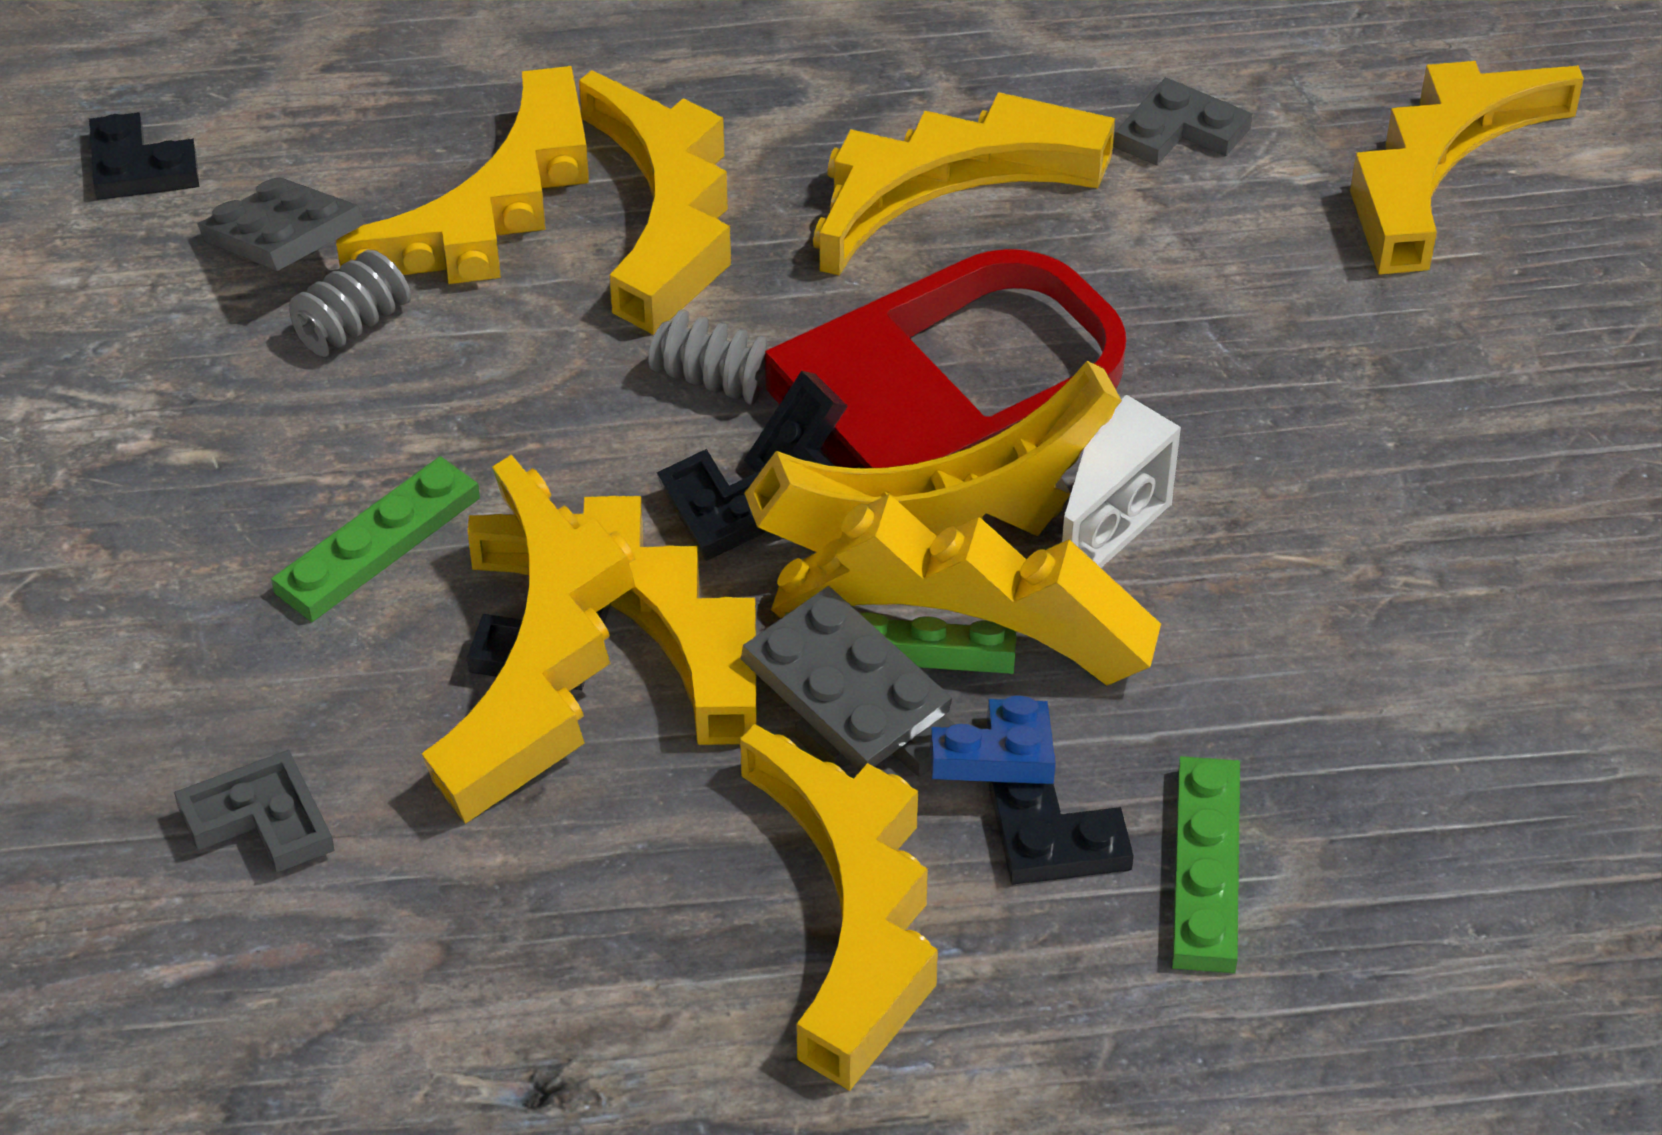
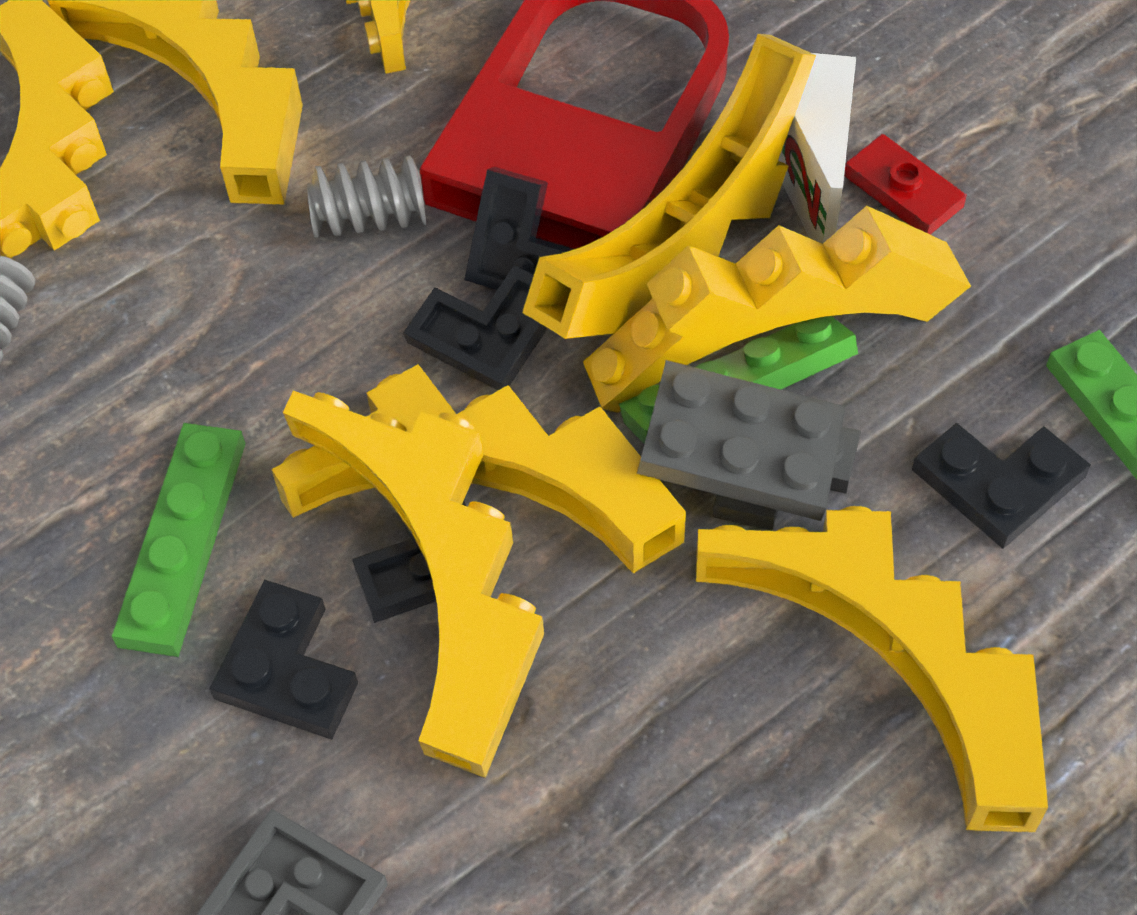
camera: 30 degrees left, 10 degrees up
(370, 660) = (269, 670): none -> black plate
(1011, 750) = (915, 430): blue plate -> none
(1180, 568) = (904, 185): none -> red plate

